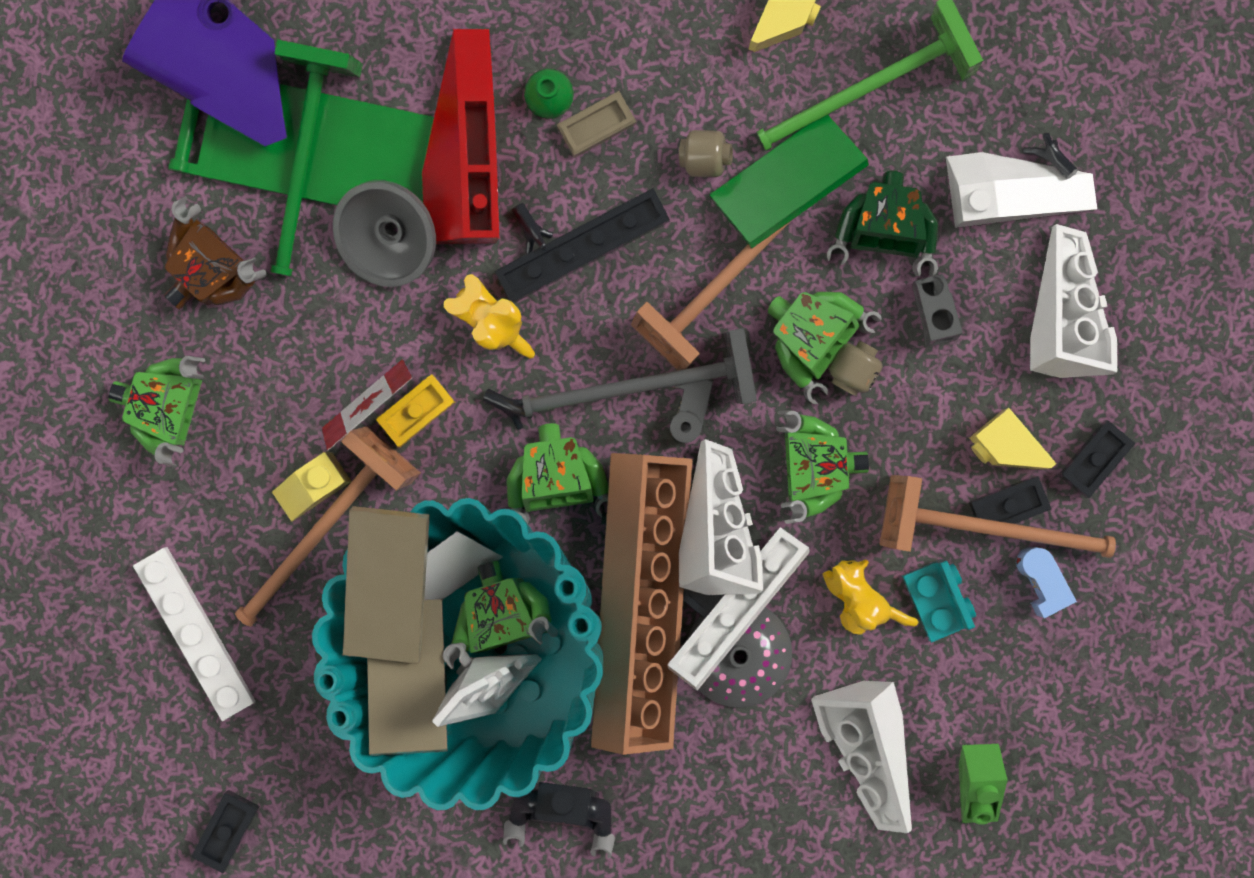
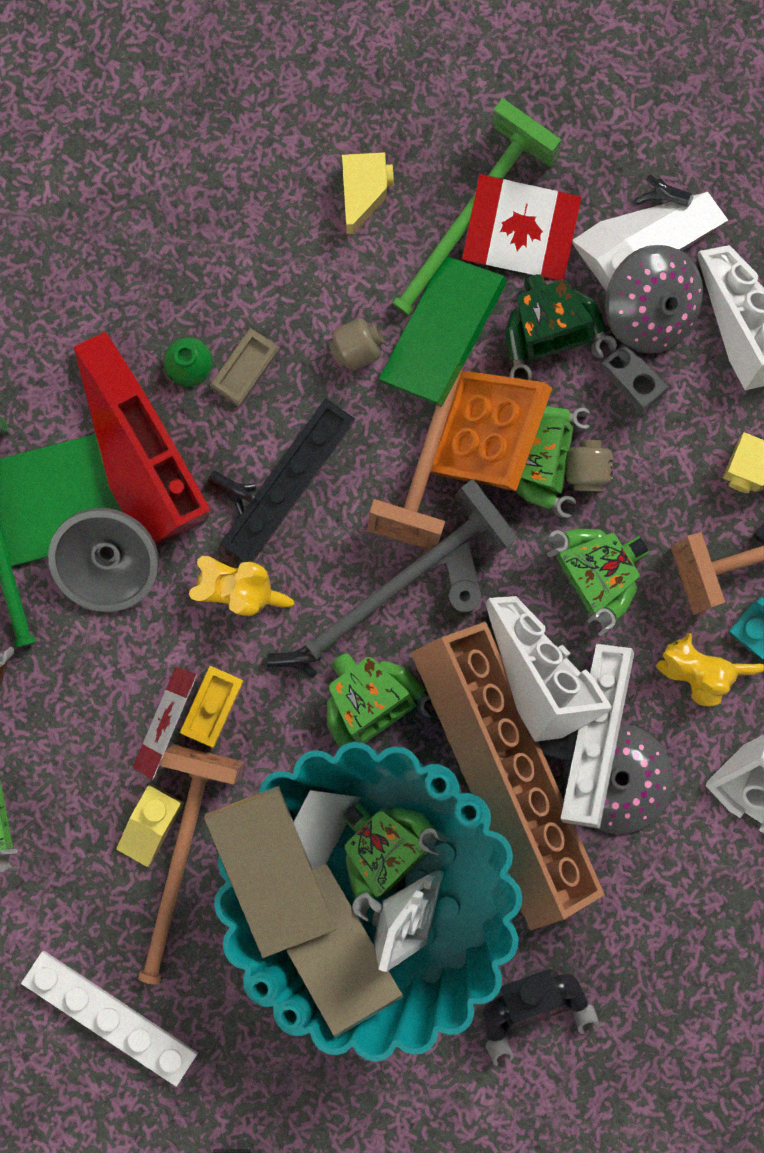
camera: 30 degrees left, 5 degrees down
(784, 291) = (490, 429): none -> orange plate
(907, 122) = (521, 227): none -> sticker
(981, 236) = (639, 296): none -> dark grey dish

